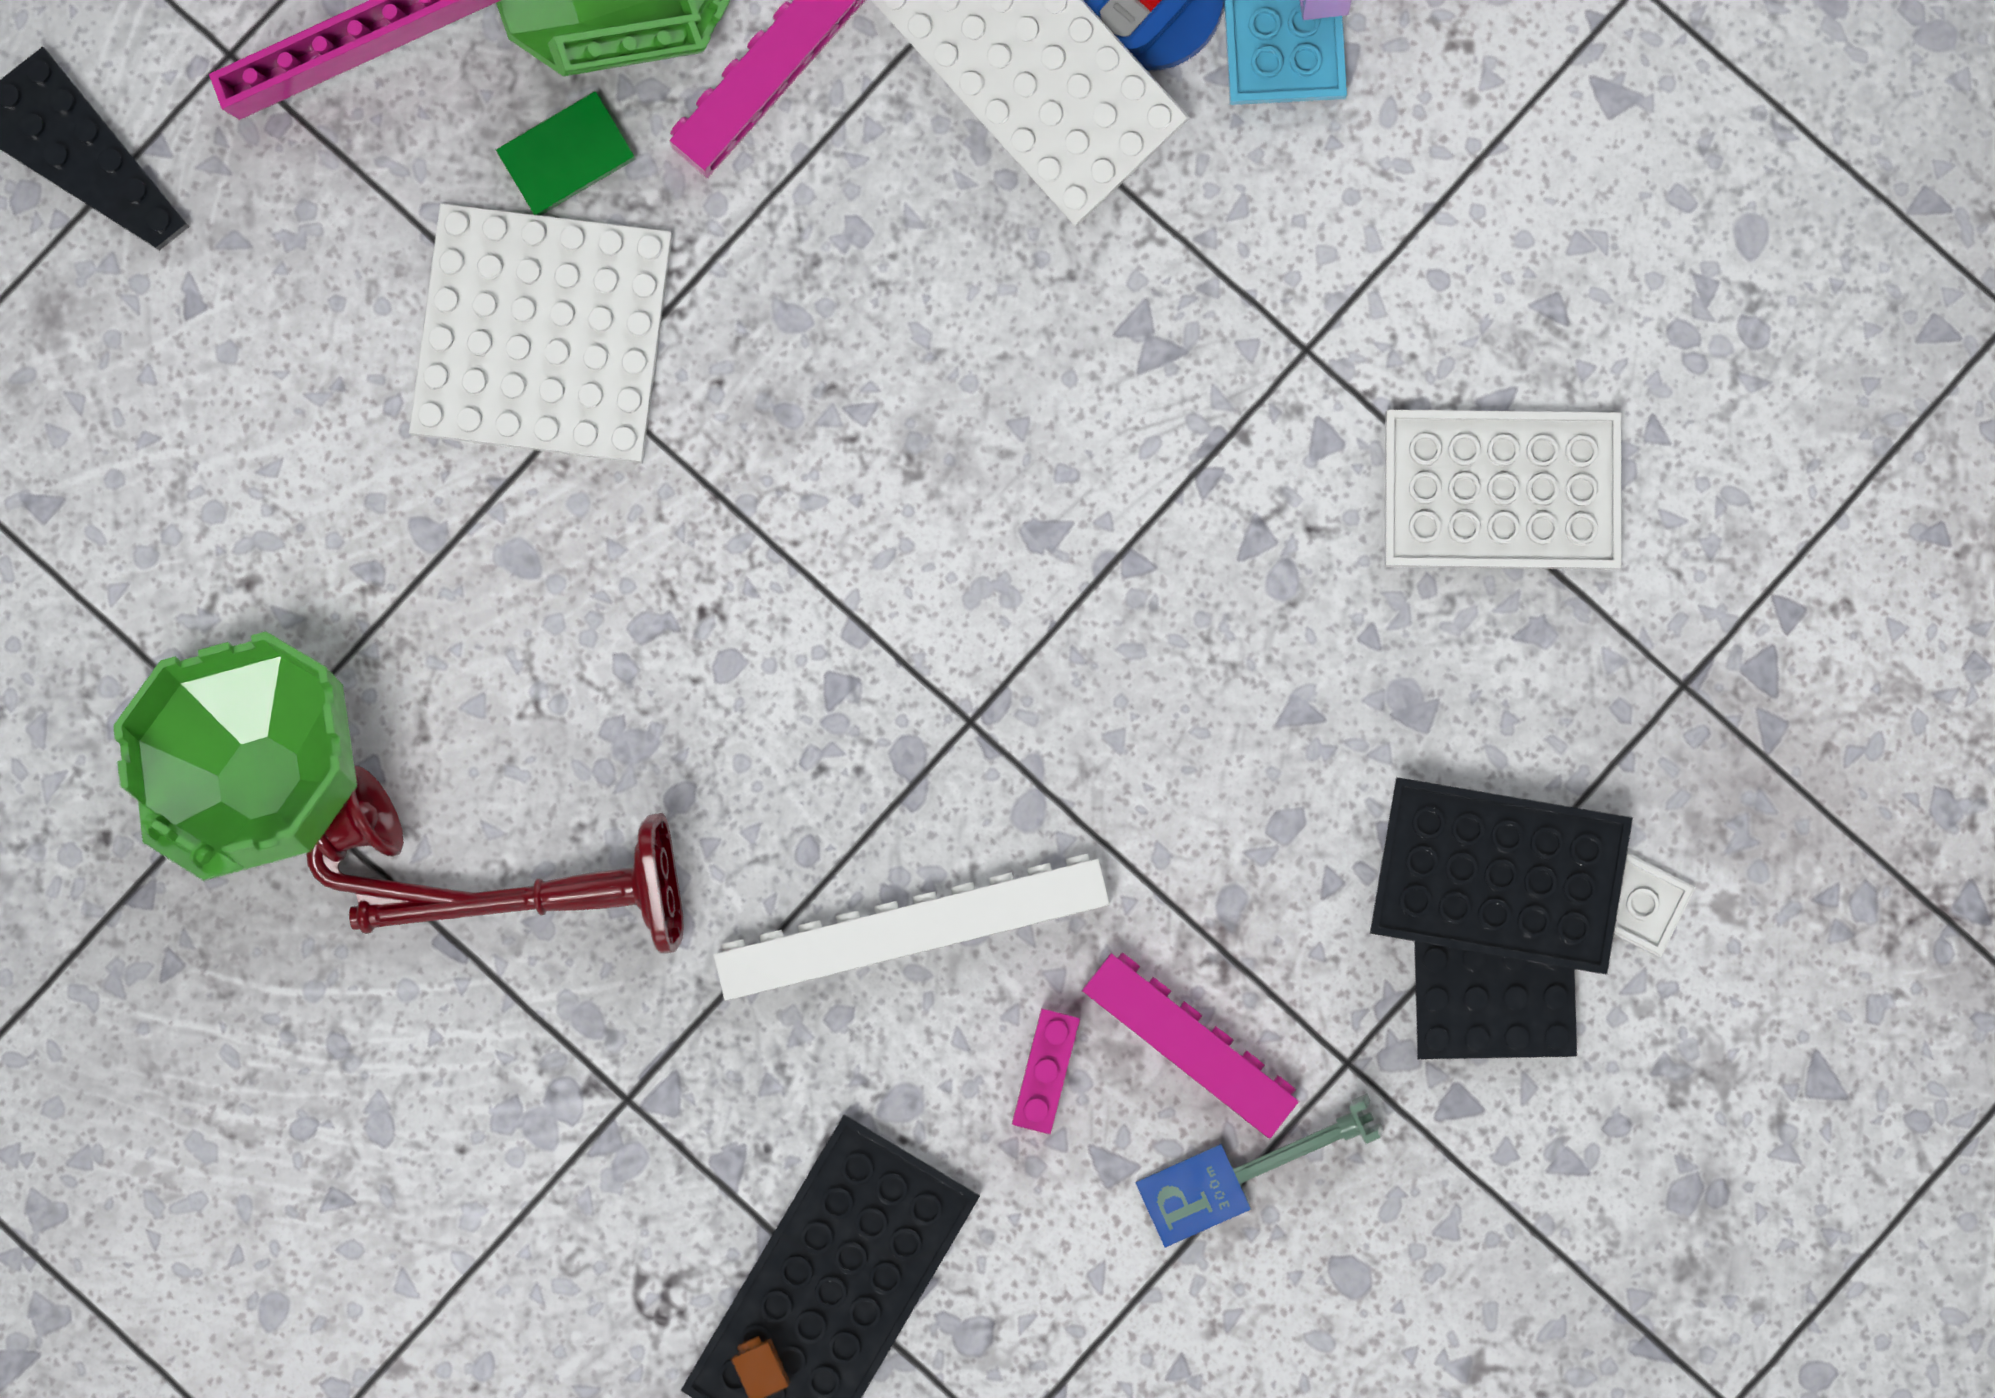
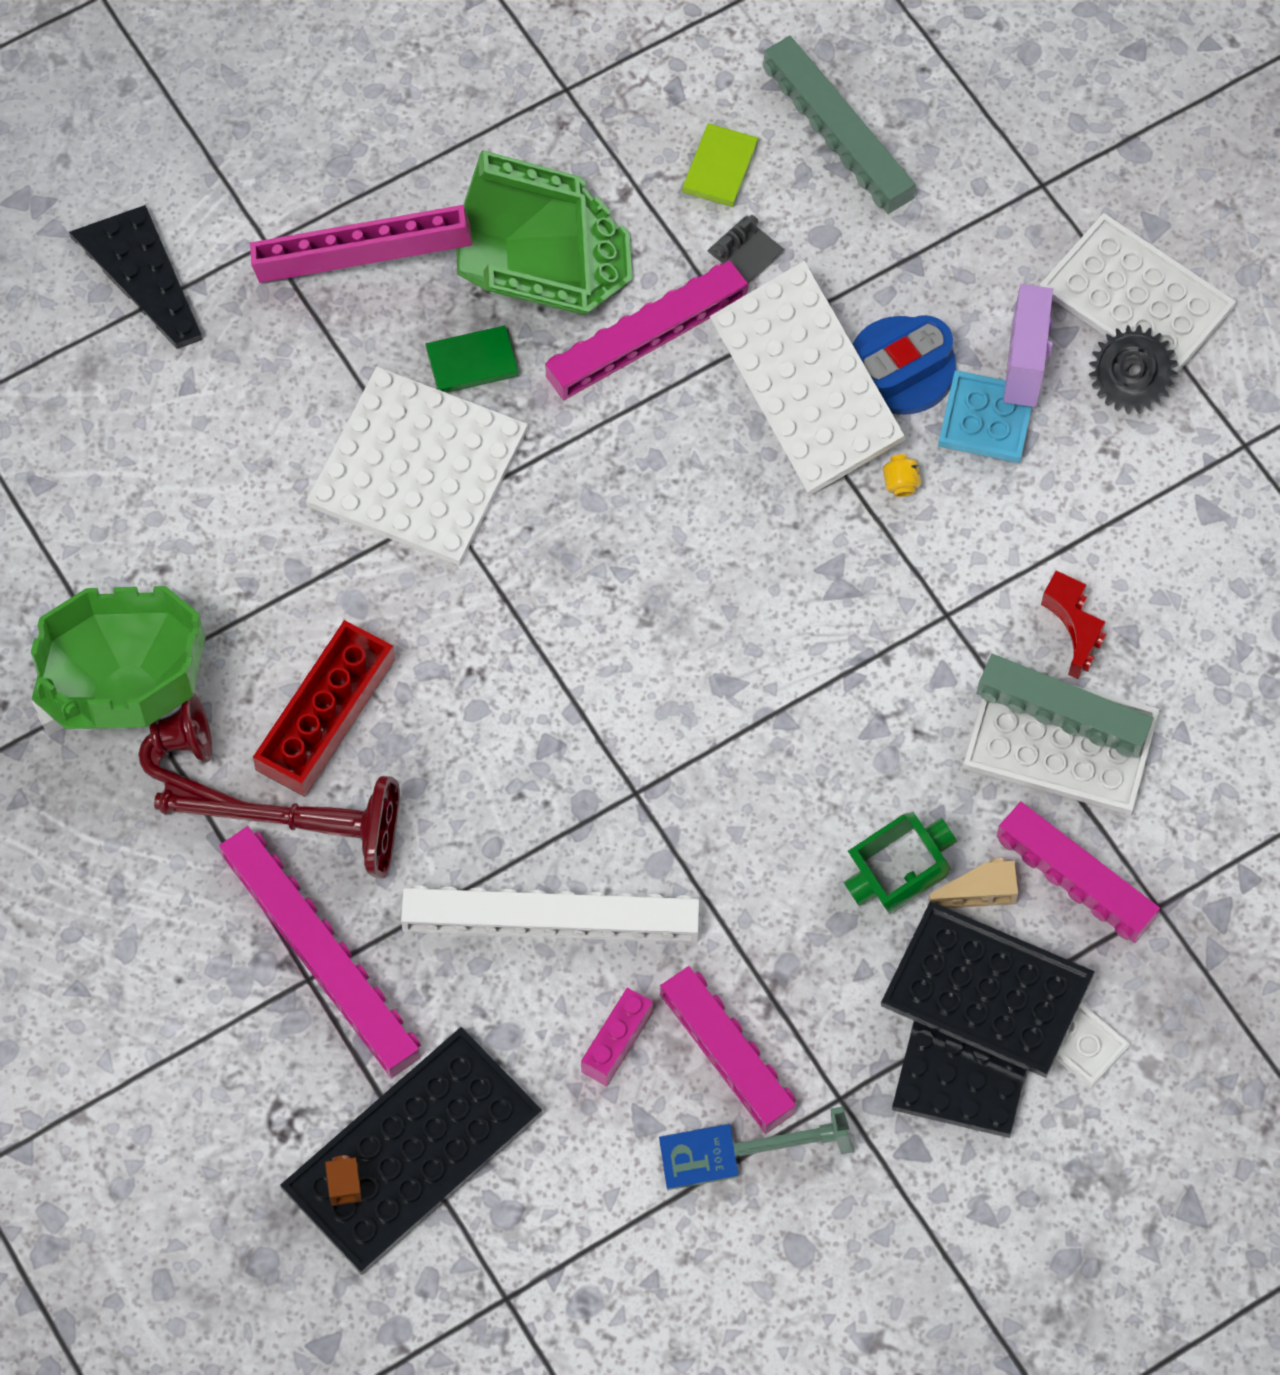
camera: 15 degrees right, 20 degrees down
(530, 729) = (324, 708): none -> red brick
(630, 1064) = (320, 952): none -> dark pink brick
(1194, 167) = (901, 475): none -> yellow head
(1379, 696) = (934, 837): none -> green piece
(1457, 286) = (1066, 600): none -> red arch
(1458, 725) = (985, 885): none -> tan slope
(1499, 450) = (1064, 706): none -> sand green brick
(1571, 673) = (1077, 872): none -> dark pink brick

